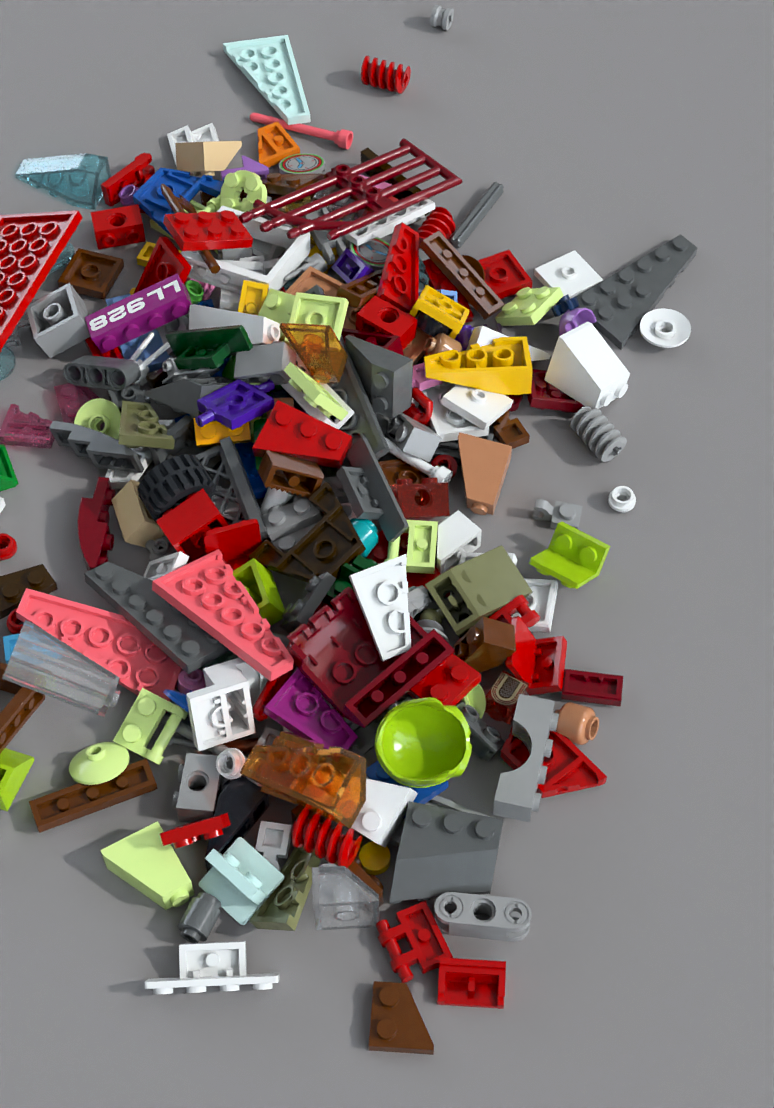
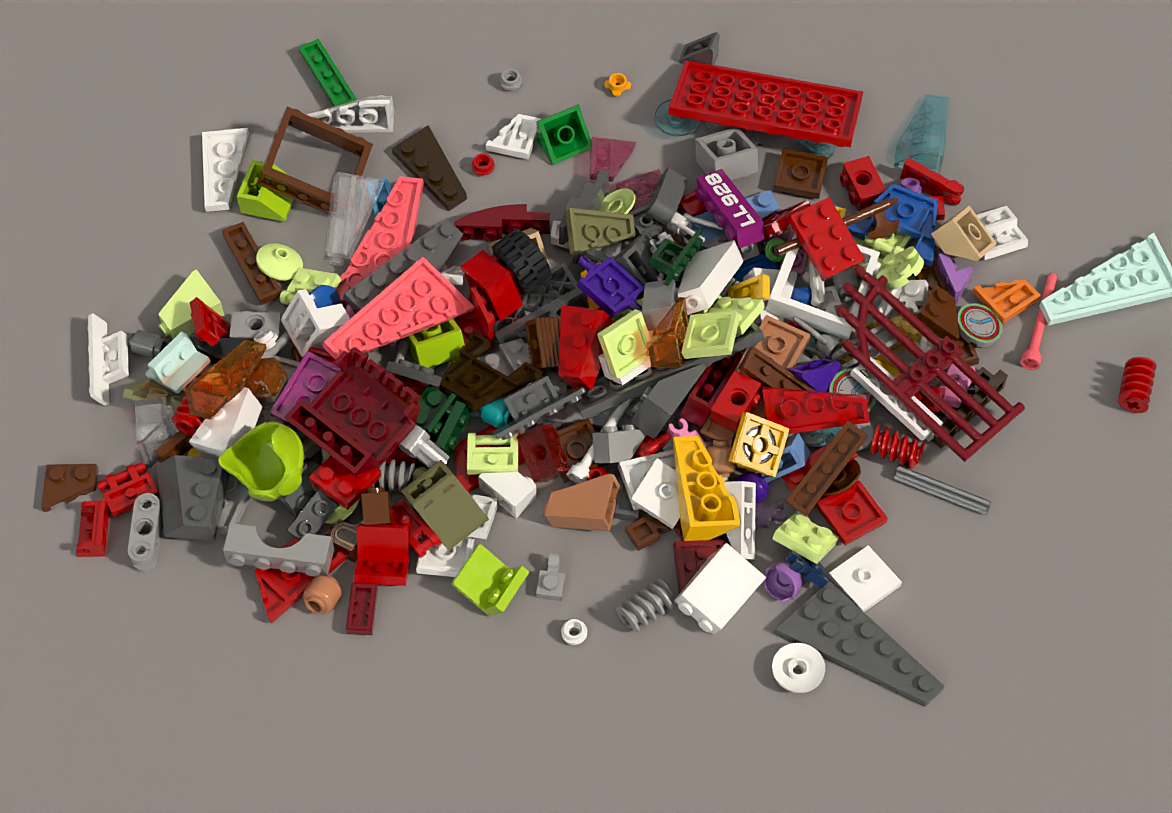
camera: 85 degrees right, 5 degrees up
(384, 603) = (386, 412): white wing -> none

